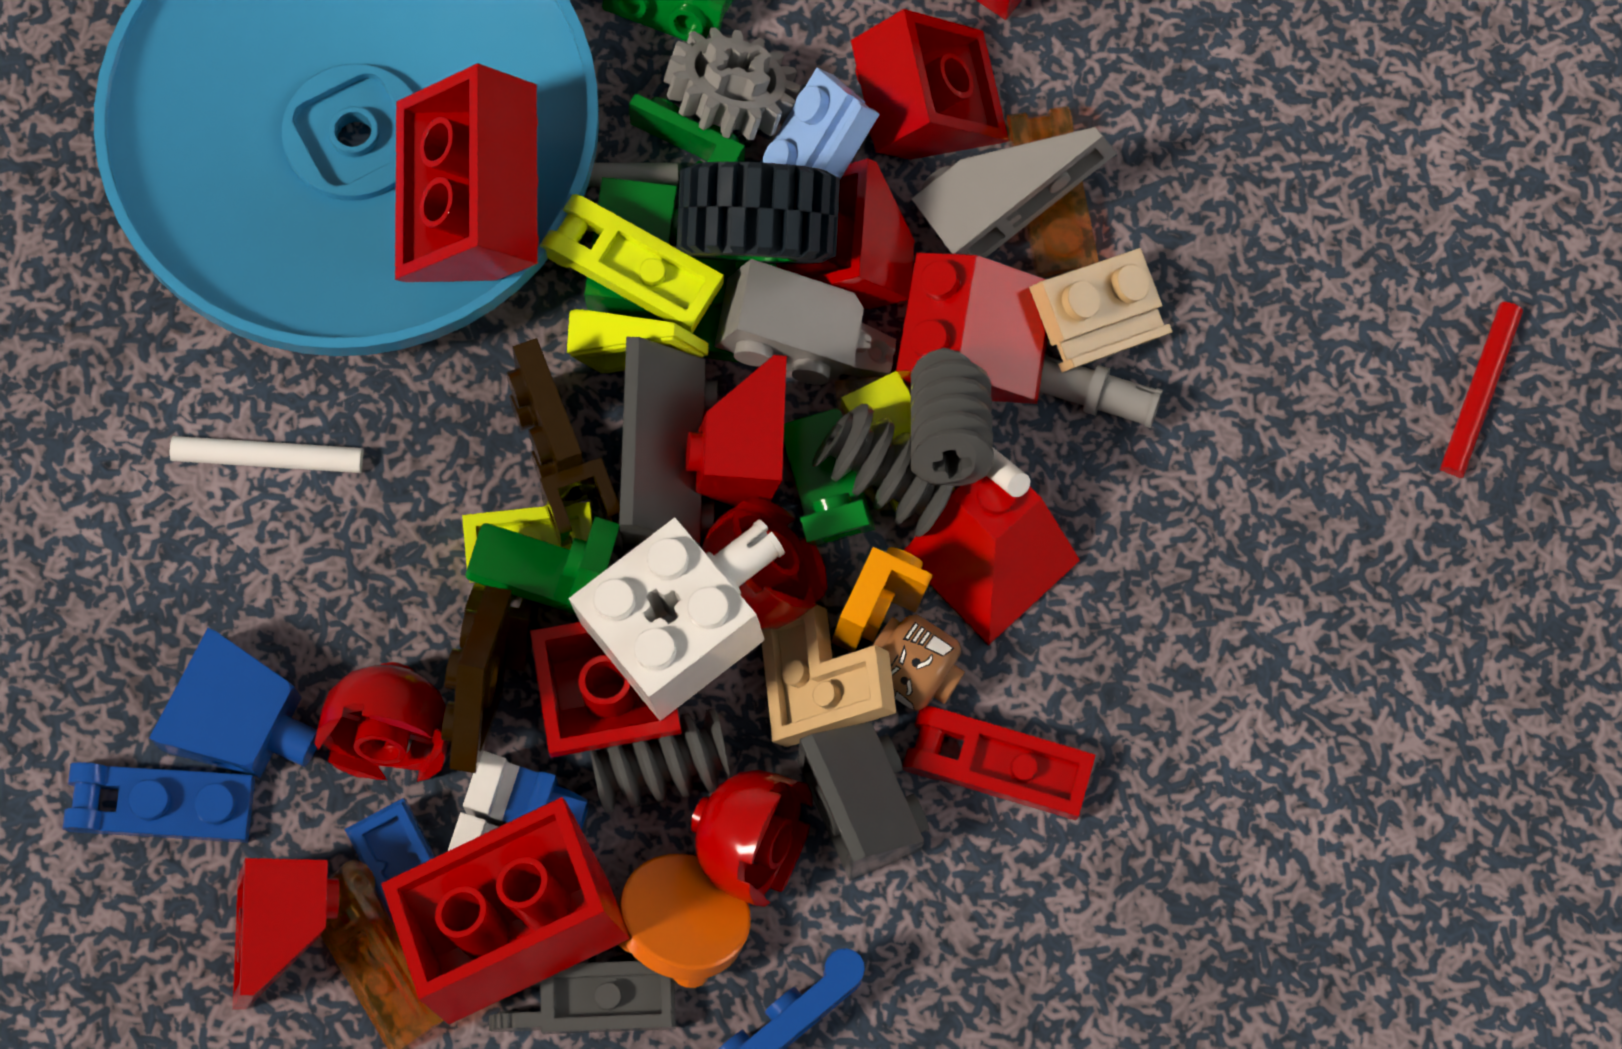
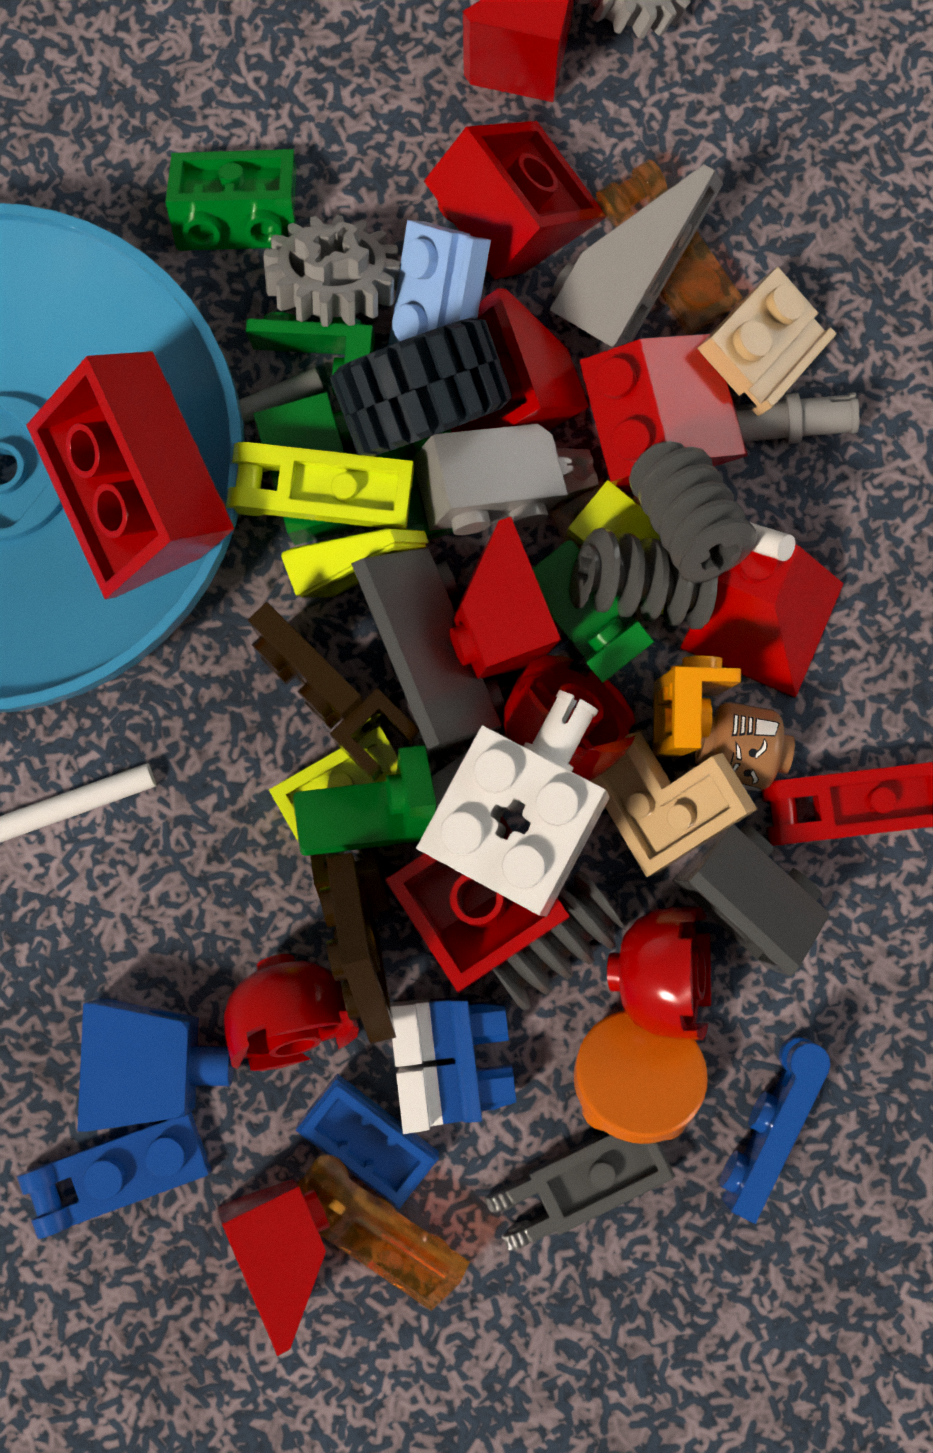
camera: 15 degrees left, 10 degrees up
(503, 912) = (479, 1155): red slope -> none

